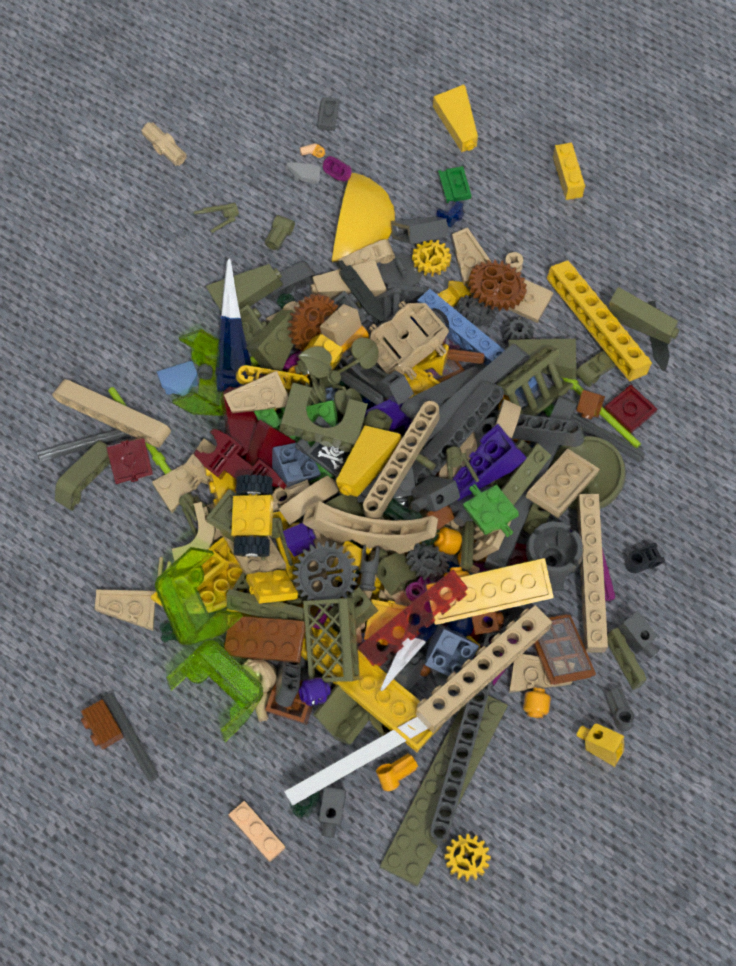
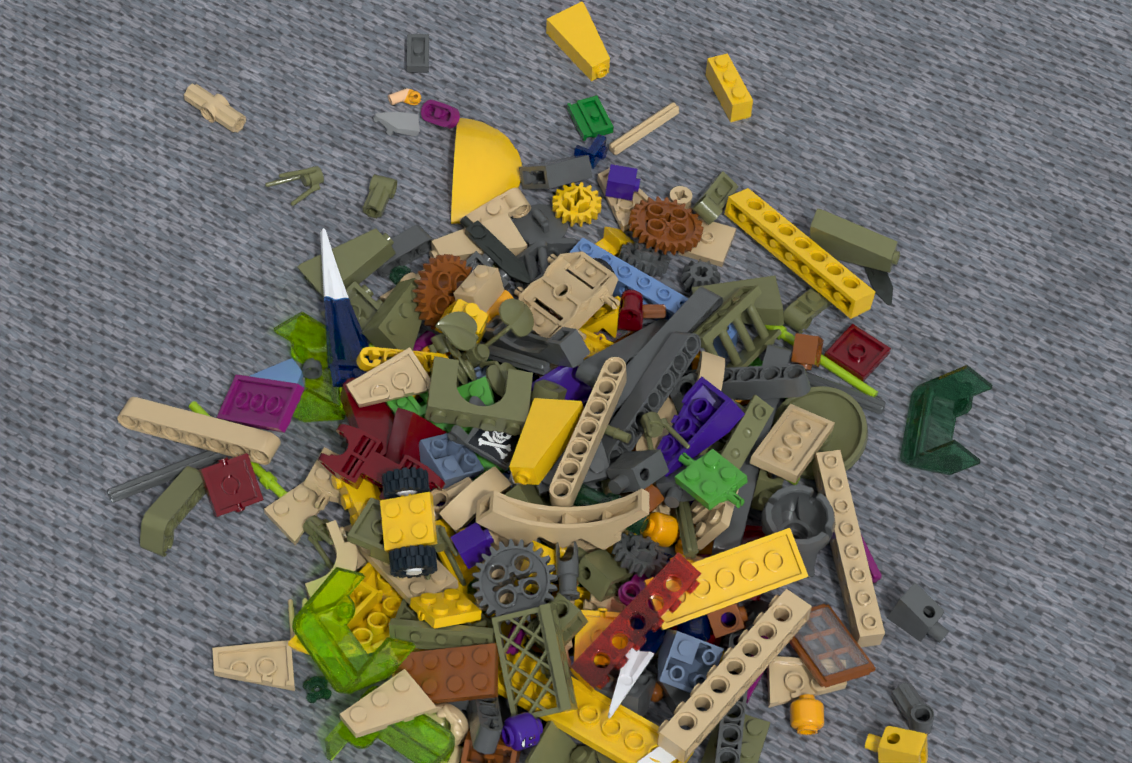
camera: 10 degrees left, 10 degrees down
(159, 398) = (261, 403): none -> magenta plate
(216, 657) = (390, 703): none -> tan wing
(456, 358) = (631, 311): none -> dark red piece
(469, 244) = (622, 182): none -> dark purple brick
(495, 198) = (643, 128): none -> tan axle
(540, 265) = (715, 197): none -> olive plate
(625, 659) = (909, 648): olive plate -> none
(646, 556) = (910, 523): black piece -> none
(679, 474) = (932, 420): none -> clear green windscreen

